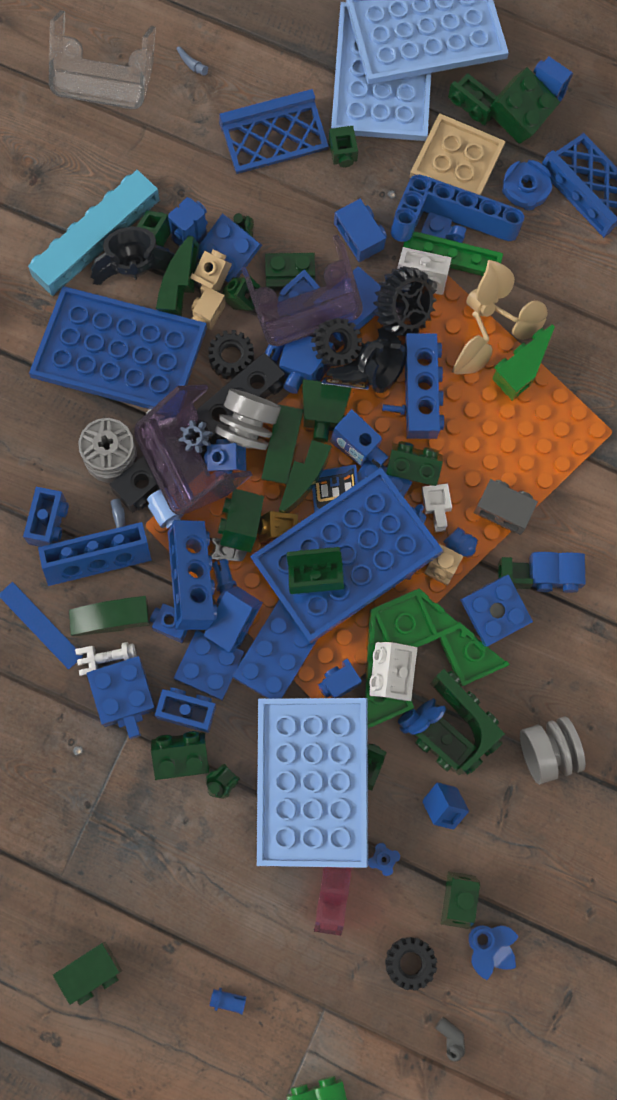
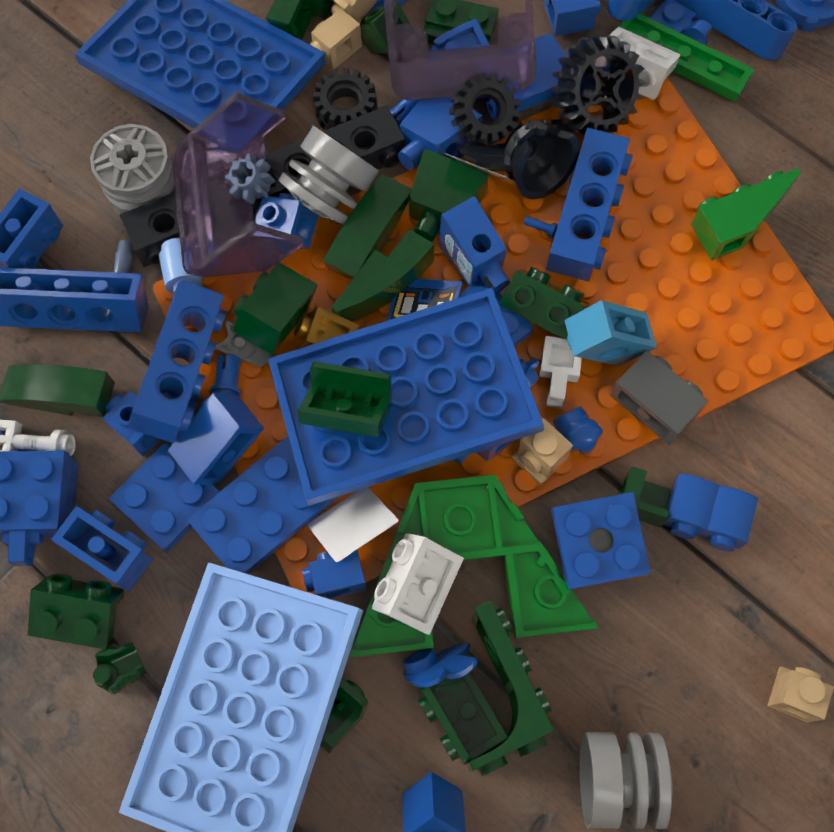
camera: 25 degrees right, 5 degrees down
(340, 647) = (352, 523): none -> white sticker
(464, 475) = (609, 333): none -> dark azure brick
(496, 284) = (728, 83): tan plant -> none

